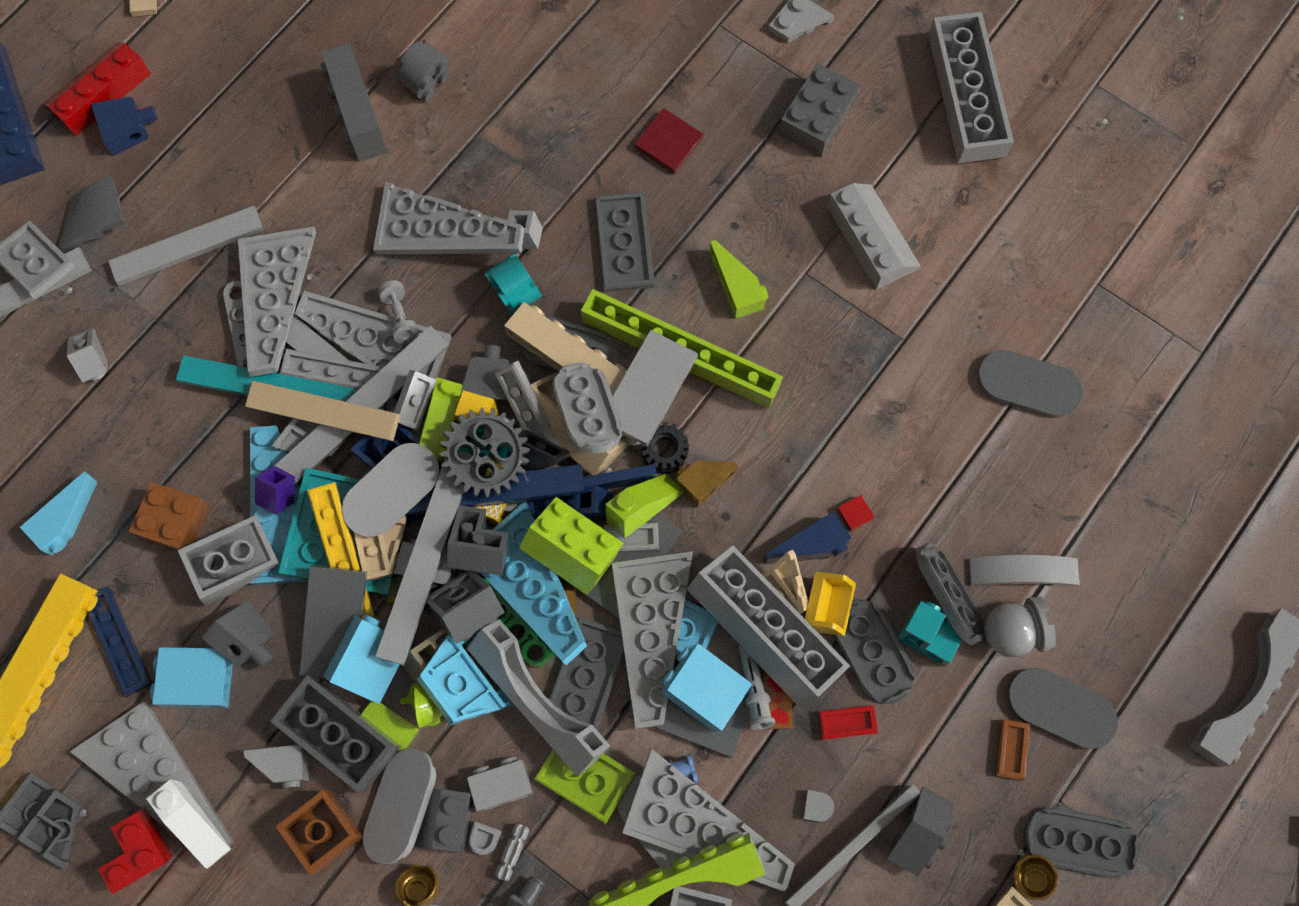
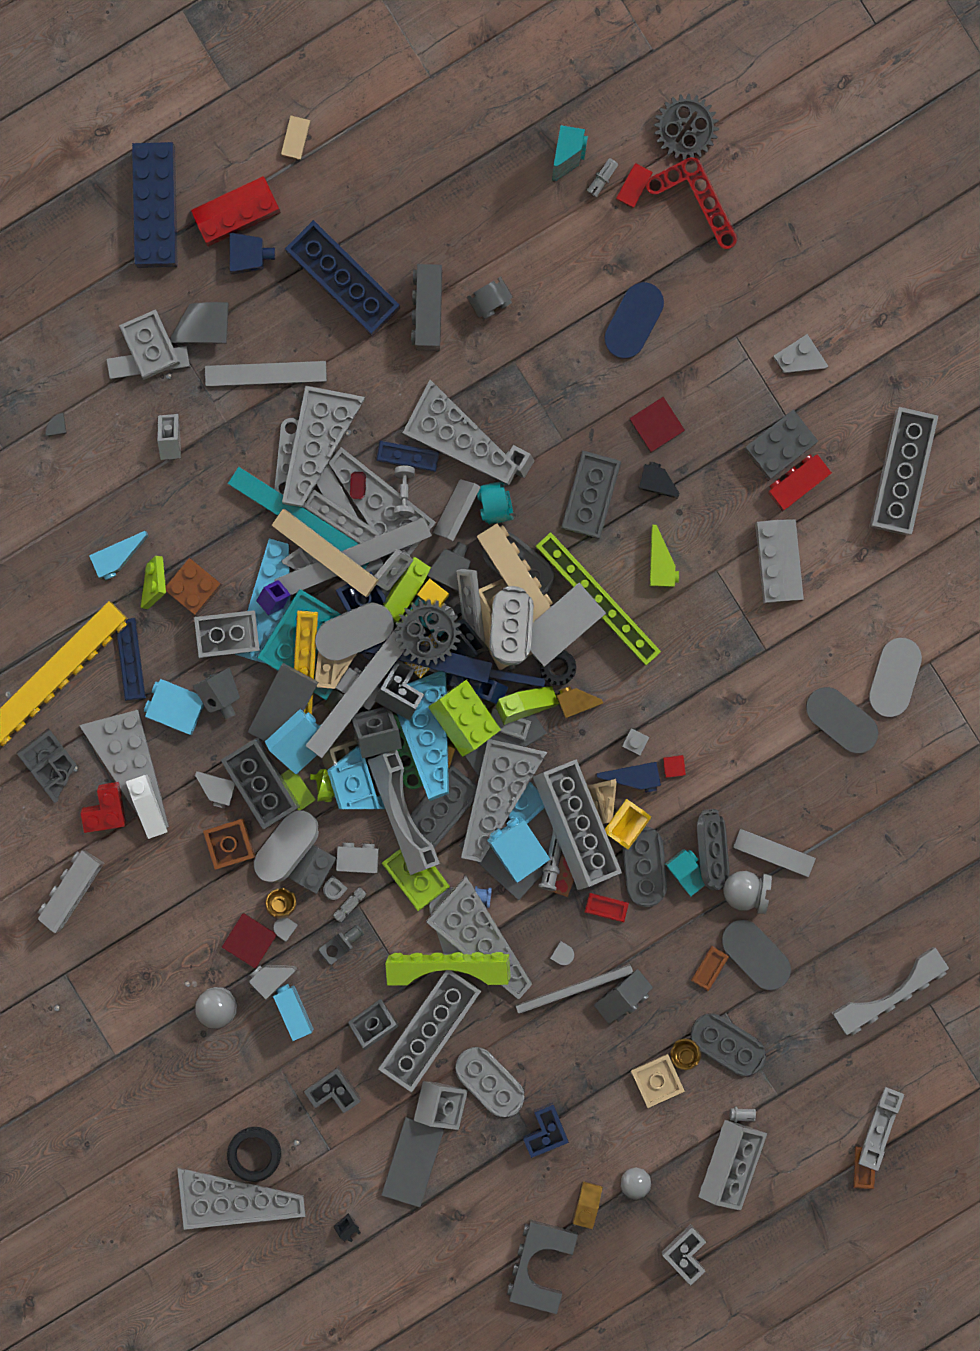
camera: 25 degrees right, 15 degrees up
(117, 532) = (154, 582): none -> lime wing
(242, 108) = (342, 278): none -> dark blue brick
(339, 325) = (358, 485): none -> dark red piece
(408, 272) = (407, 456): none -> dark blue tile
(469, 307) = (456, 509): none -> light grey tile
(597, 44) = (634, 320): none -> dark blue tile
(697, 197) = (657, 481): none -> black slope
(796, 499) = (635, 741): none -> light grey brick
(857, 141) = (799, 481): none -> red brick
(1067, 313) = (895, 677): none -> light grey tile

